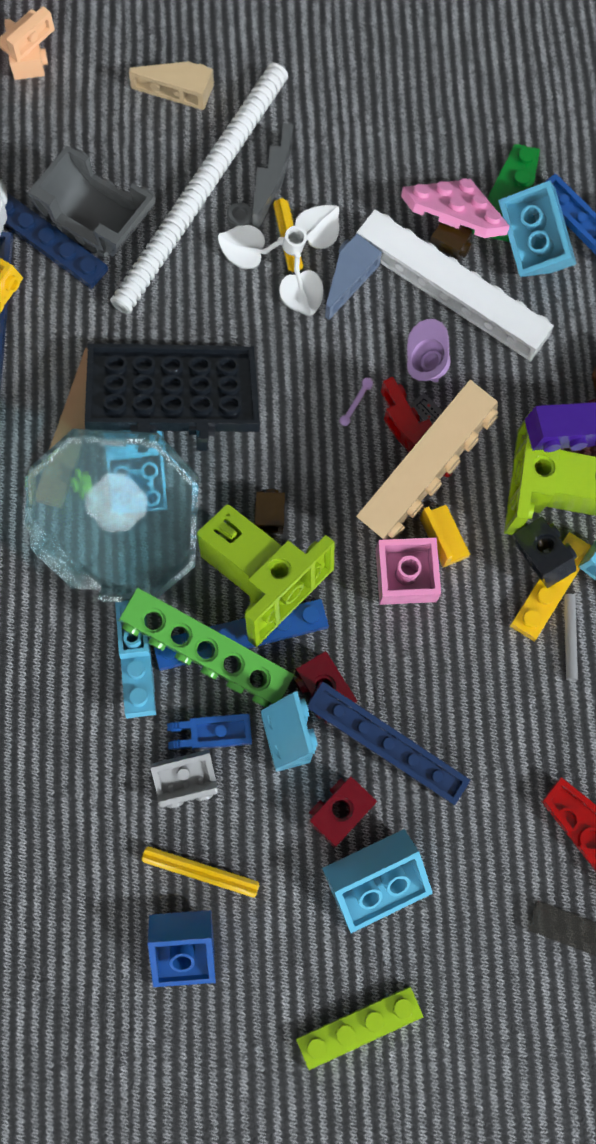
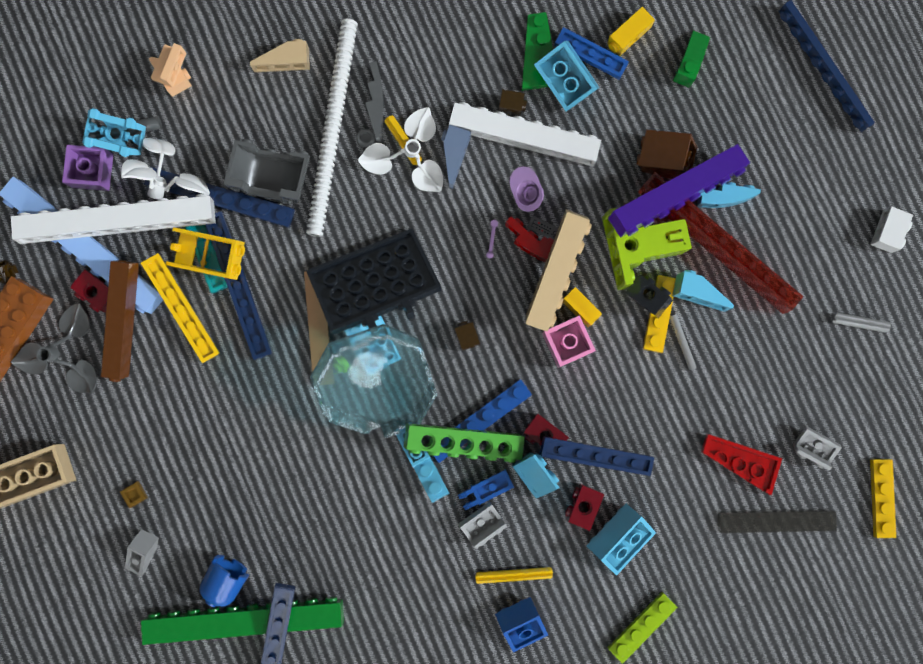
camera: 20 degrees left, 10 degrees up
(268, 572) = (476, 376): lime brick -> none
(457, 205) = (507, 77): bright pink plate -> none

